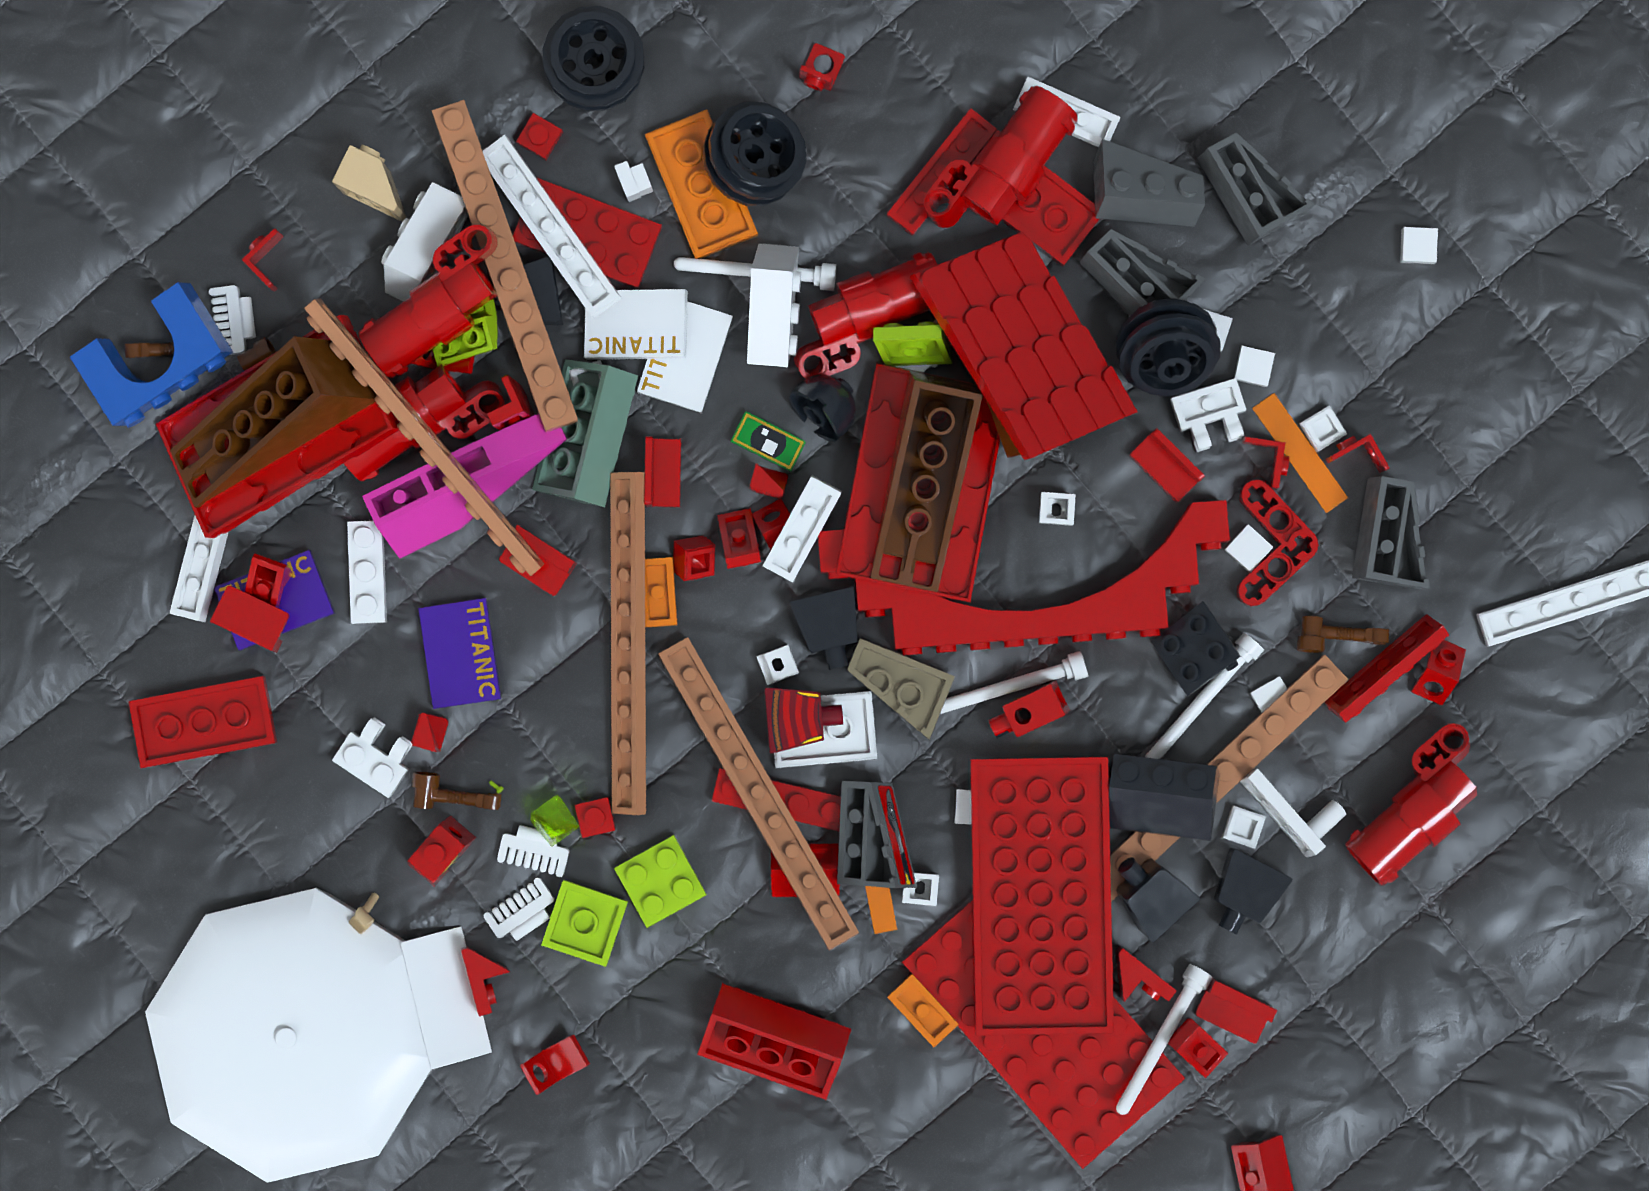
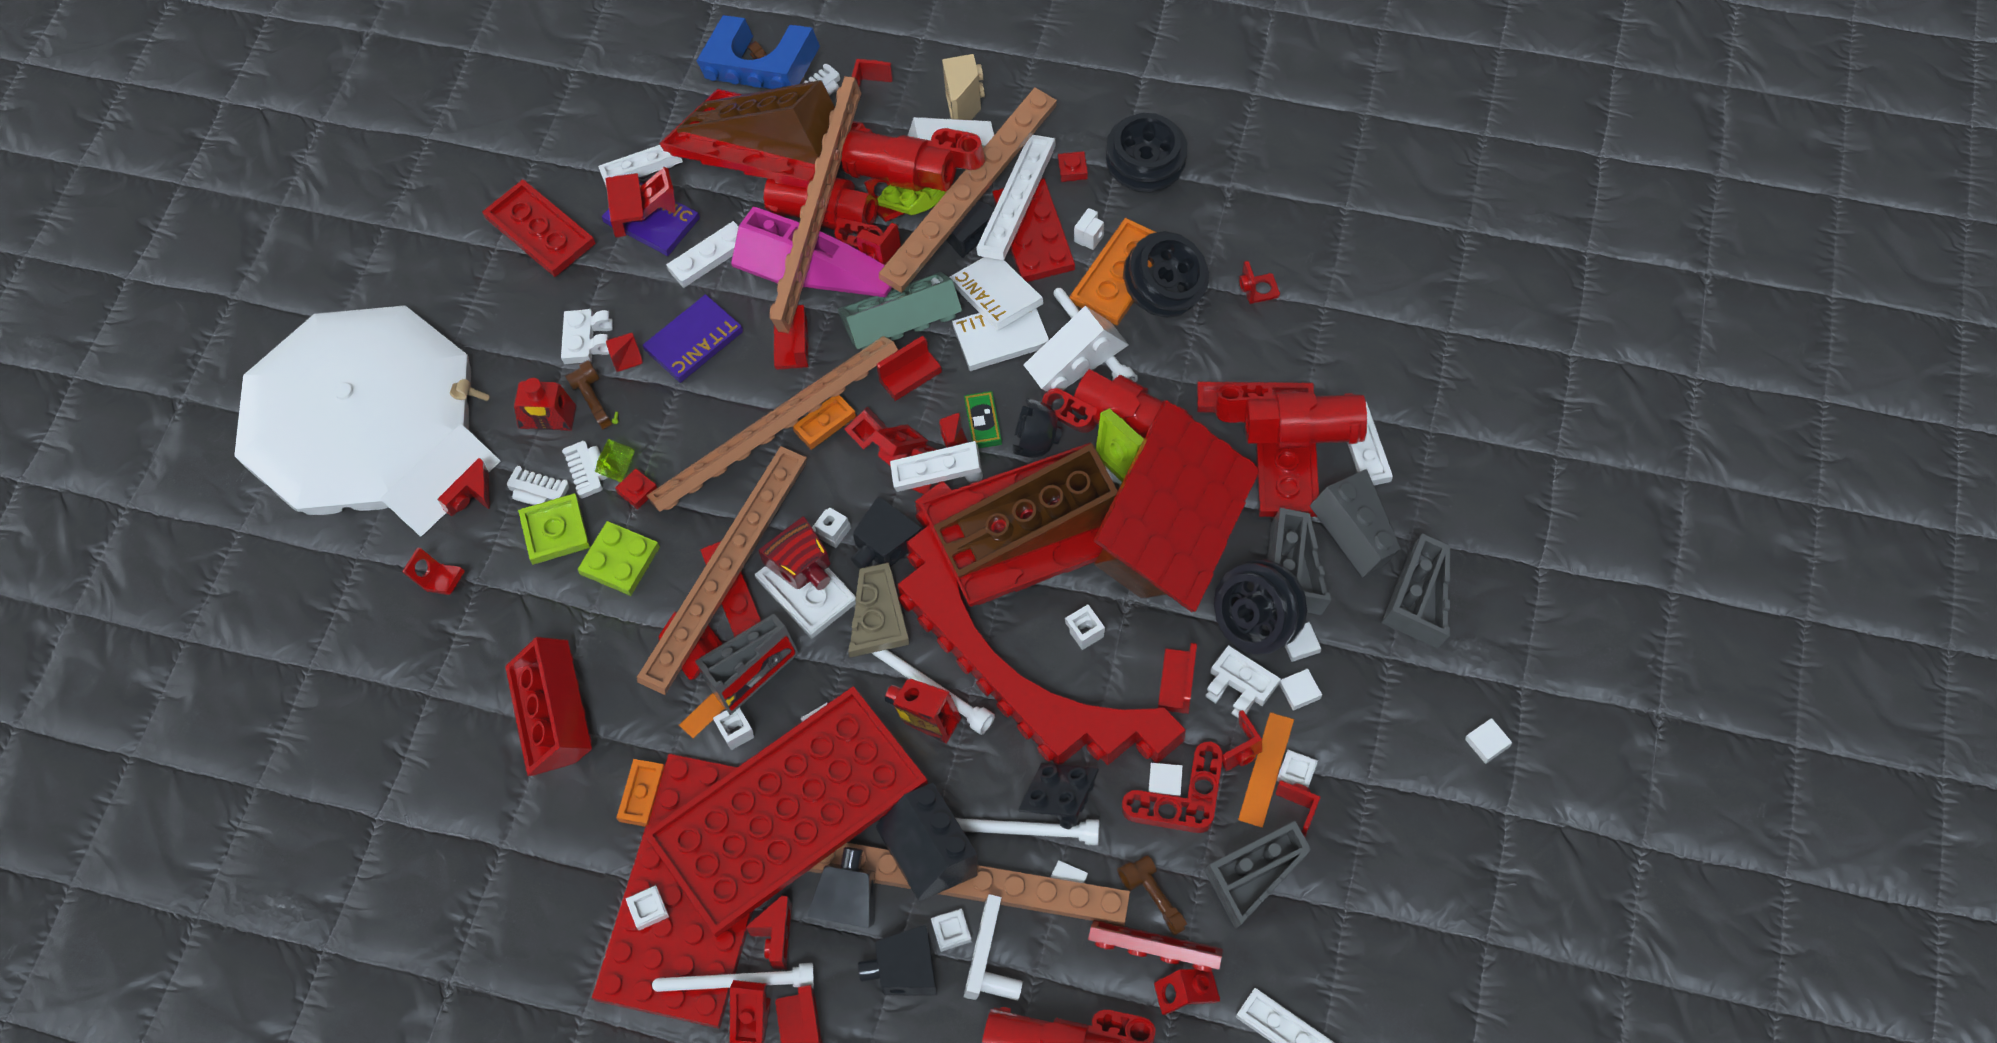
camera: 60 degrees right, 25 degrees down
(1041, 1073) = (647, 907): none -> white tile

